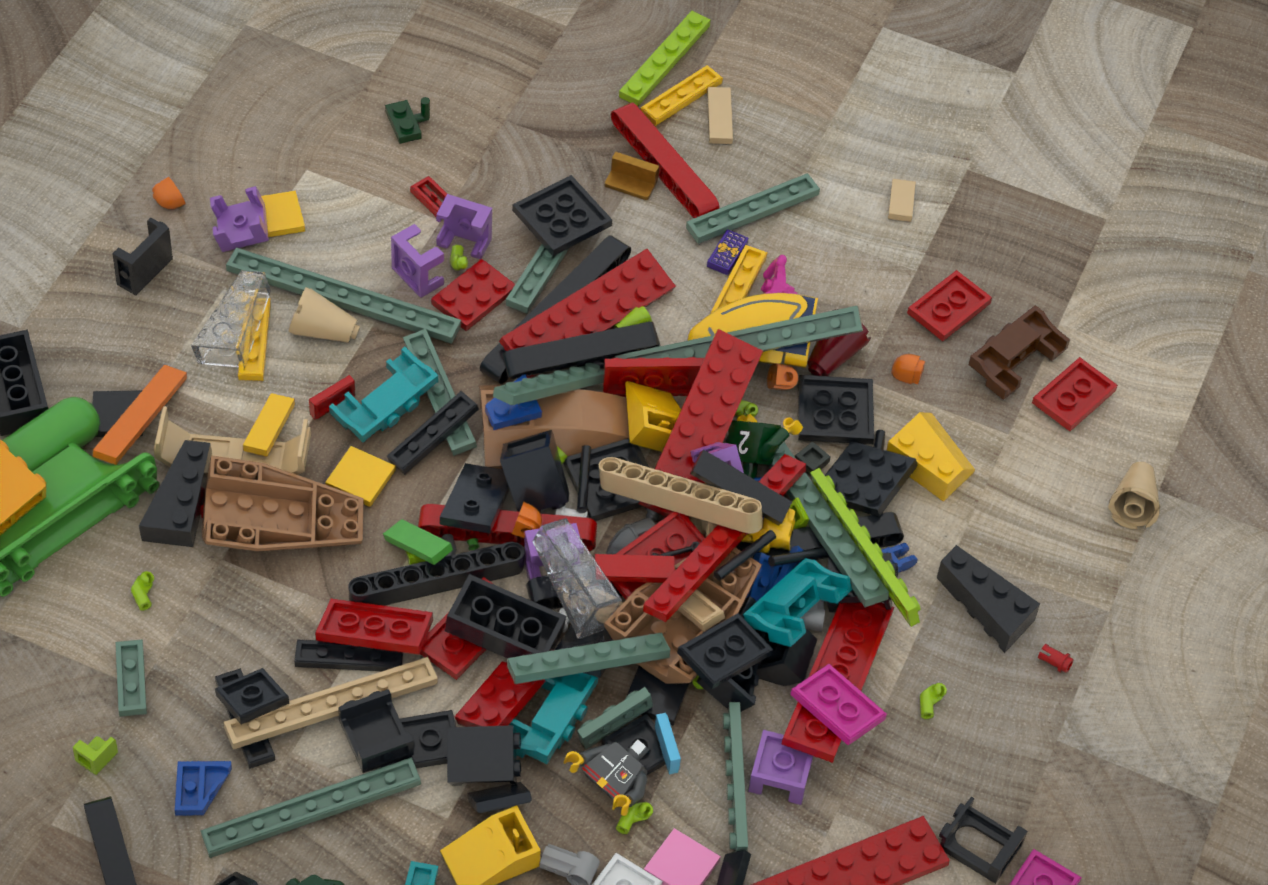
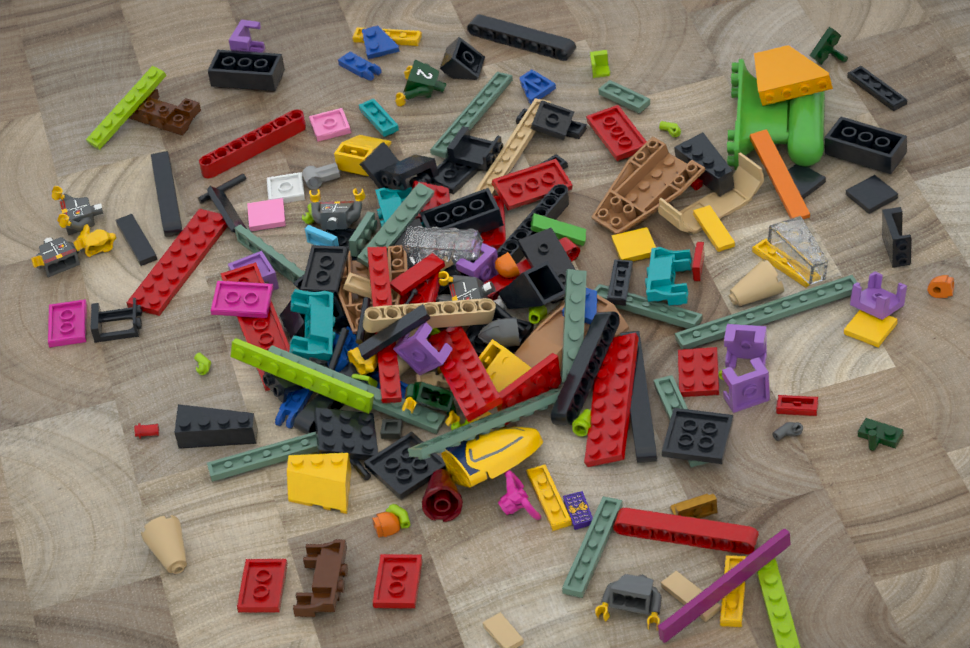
camera: 150 degrees right, 10 degrees down
(79, 341) = (871, 194): none -> black tile
(201, 632) = (616, 132): none -> red plate
(470, 181) = (788, 429): none -> dark grey arm
(603, 518) = (466, 287): none -> dark grey torso
(616, 442) = (502, 331): none -> dark grey helmet
(694, 82) = (724, 585): none -> magenta tile
(772, 138) = (634, 595): none -> dark grey torso
(886, 369) = (401, 514): none -> lime arm
(961, 527) = (262, 456): none -> sand green plate

